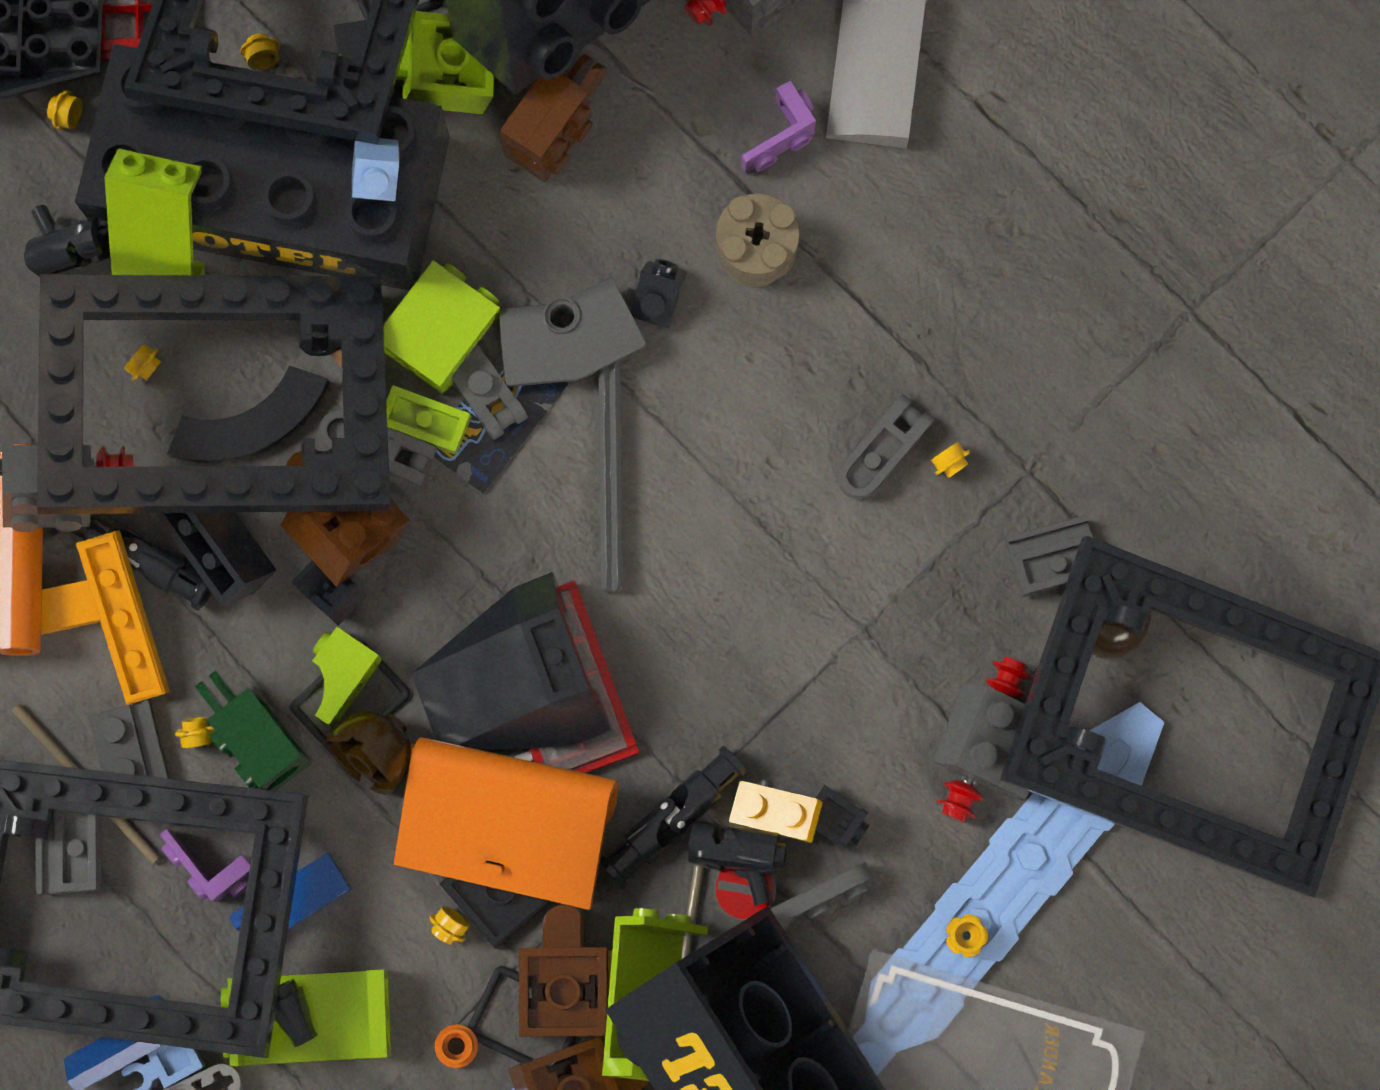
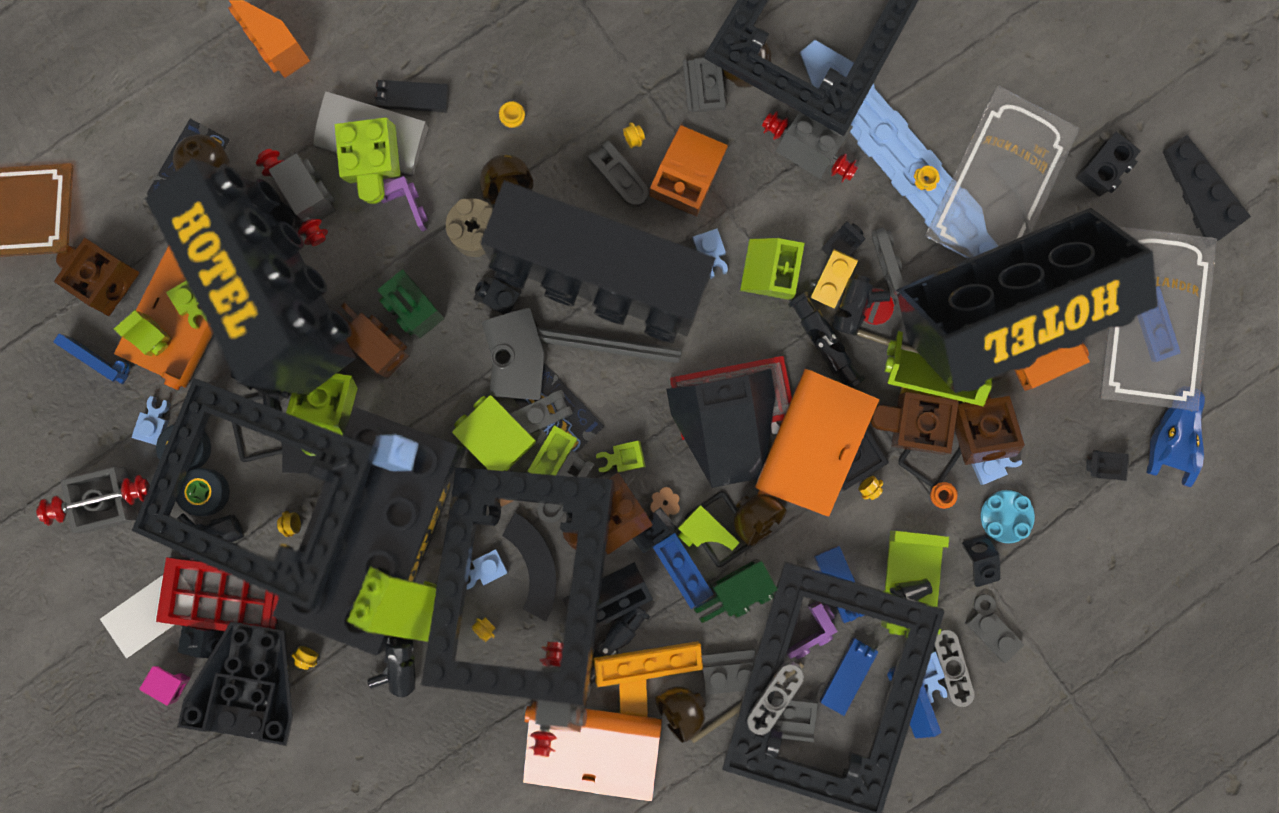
camera: 85 degrees left, 5 degrees up
(57, 681) = (682, 711): none -> dark brown cylinder
(87, 798) = (758, 710): none -> light grey beam
(146, 937) = (848, 676): none -> blue hinge
(194, 732) = (728, 627): yellow plate -> none
(235, 352) = (487, 568): none -> light blue plate
(274, 648) = (683, 571): none -> blue hinge
(391, 605) = (672, 499): none -> medium nougat plant
(437, 530) = (625, 457): none -> lime plate
(618, 164) = (407, 300): none -> dark green brick
(726, 425) = (595, 260): none -> black brick
(775, 710) = (772, 267): none -> lime slope
(791, 608) = (712, 245): none -> light blue plate
(836, 60) = (368, 155): none -> lime brick
(840, 273) = (502, 169): none -> dark brown cylinder
(910, 552) = (687, 170): none -> orange slope
(949, 114) = (412, 96): none -> black hinge
(949, 268) = (511, 114): none -> yellow plate

